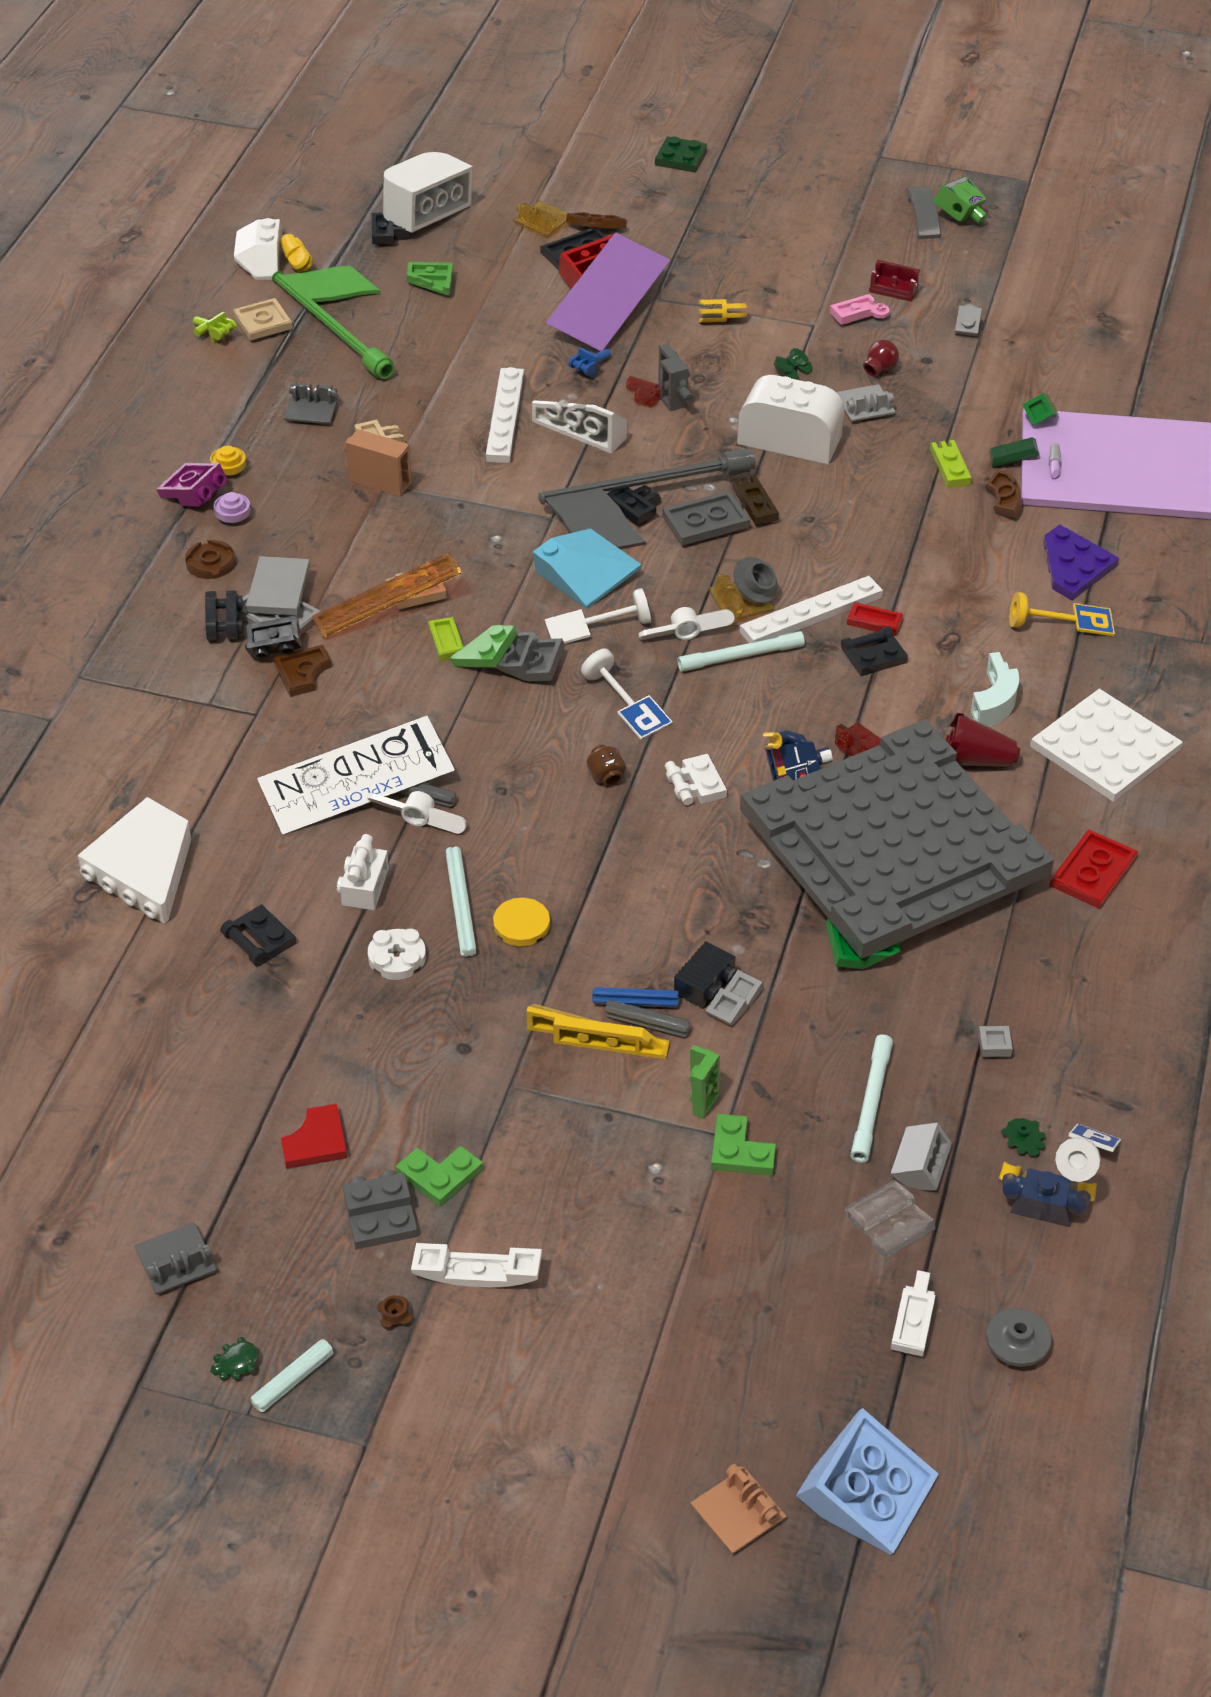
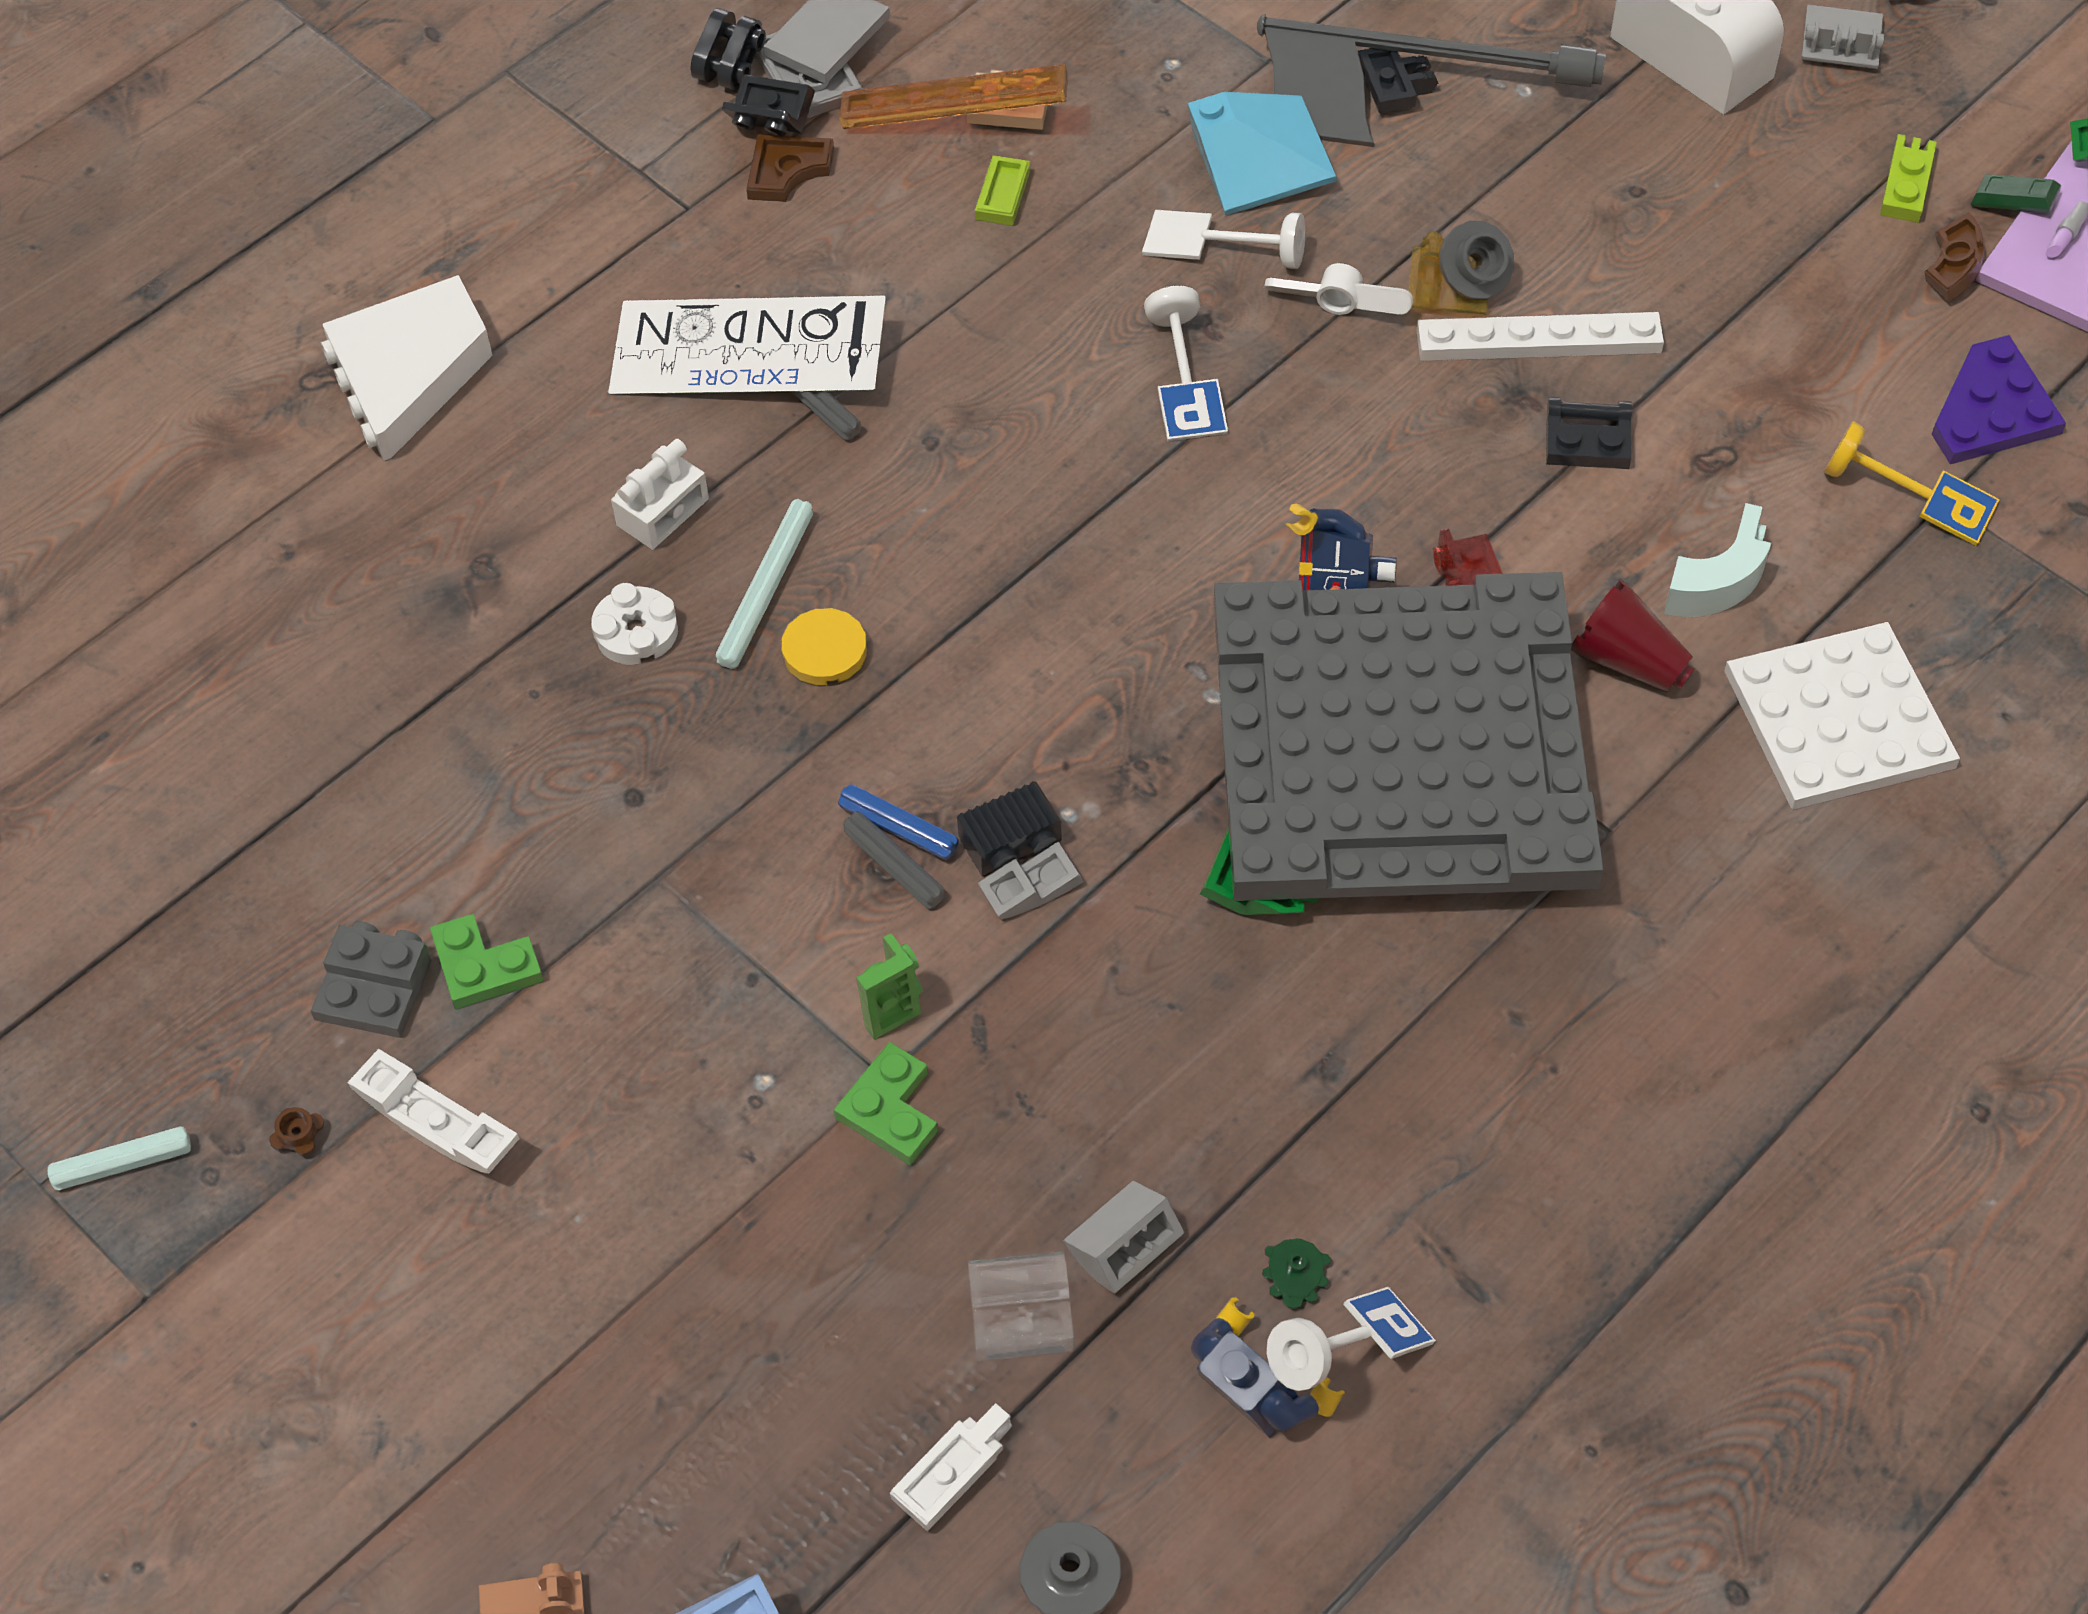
camera: 30 degrees right, 10 degrees up
(175, 1258) = (89, 931): dark grey hinge -> none
(235, 1359) = (69, 1104): dark green piece -> none
(264, 930) = (494, 521): black plate -> none
(317, 1139) = (363, 846): red tile -> none
(420, 811) = (796, 431): white piece -> none
(486, 648) = (1040, 224): bright green wing -> none
(532, 657) = (1091, 259): dark grey plate -> none
(593, 1034) = (807, 846): yellow wedge -> none
(606, 765) = (1084, 461): reddish brown head -> none
(699, 660) = (1459, 369): light aqua piece -> none
(703, 780) = (1211, 535): white plate -> none
(705, 518) = (1480, 137): dark grey plate -> none
(755, 500) = (1571, 135): dark brown hinge -> none
(863, 1137) = (1066, 1167): light aqua piece -> none
(874, 618) = (1625, 382): red tile -> none
(995, 1041) = (1348, 1108): light grey plate -> none
(1093, 868) = (1685, 903): red tile -> none

